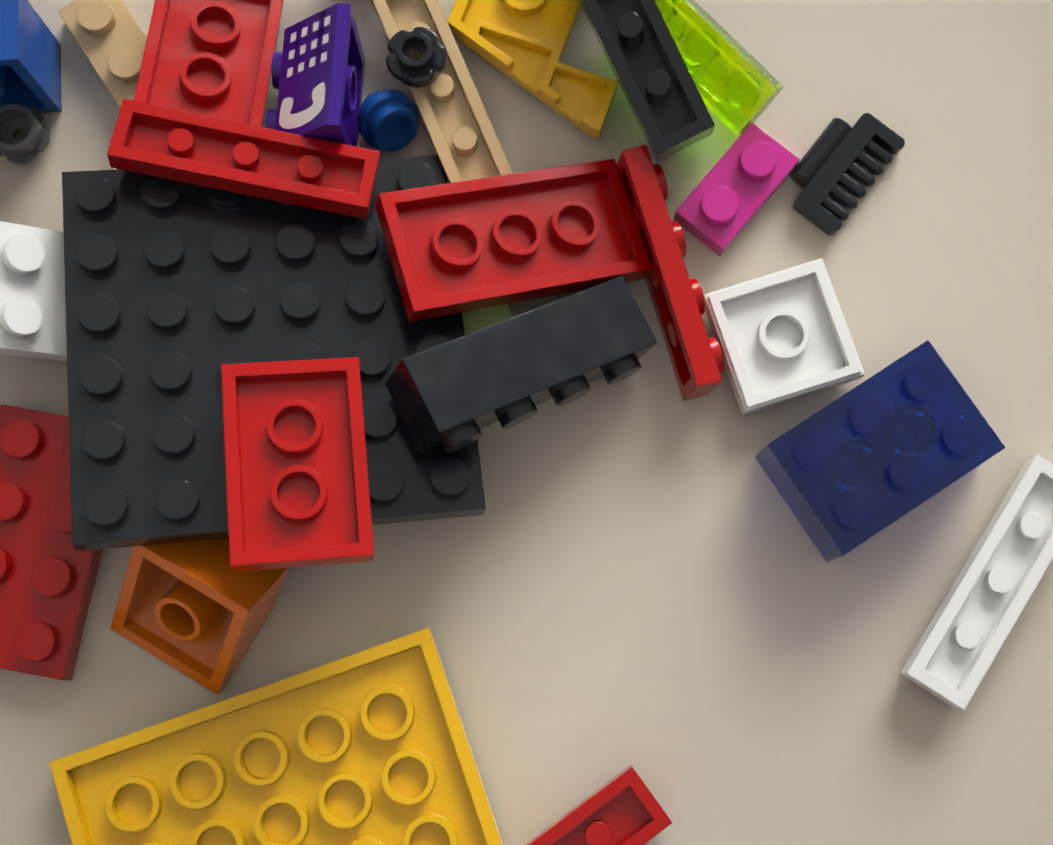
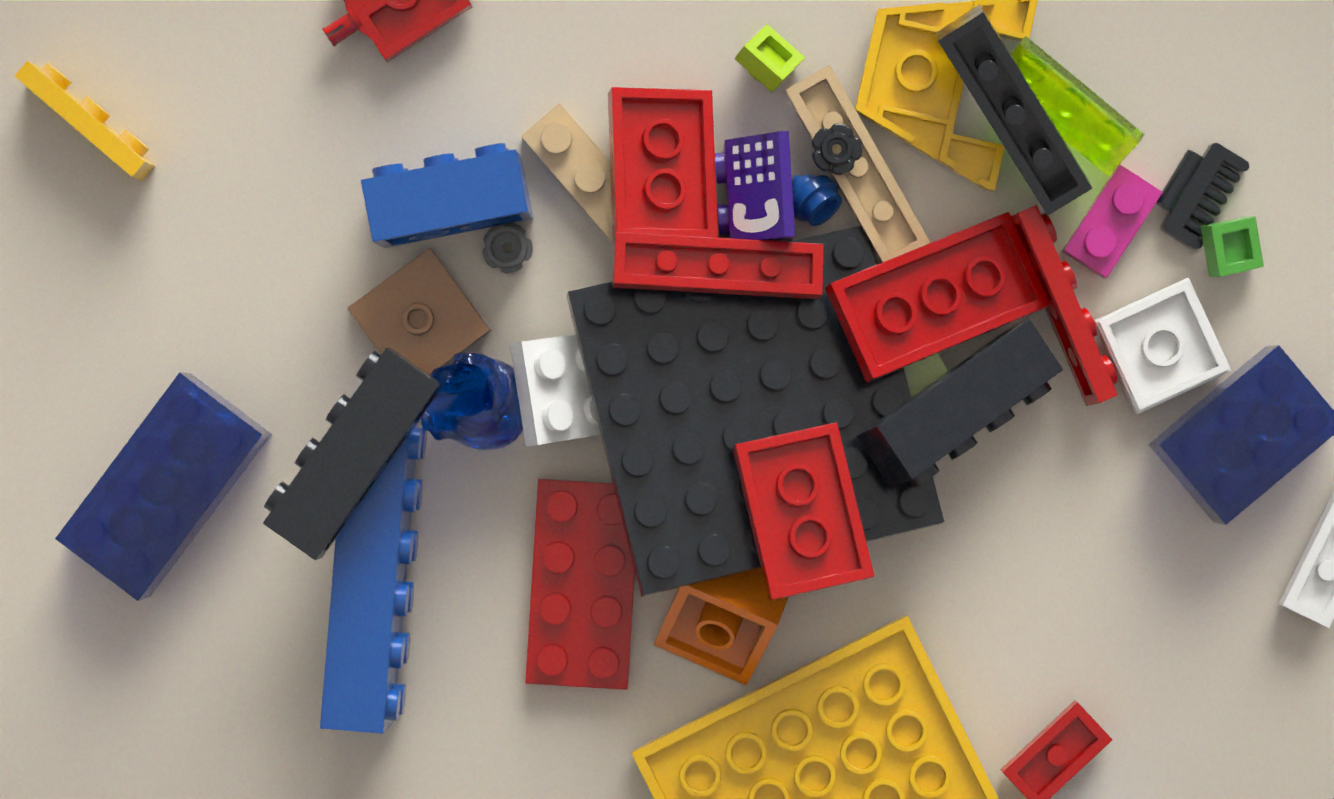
camera: 10 degrees left, 10 degrees up
(877, 229) = (1232, 246): none -> bright green plate

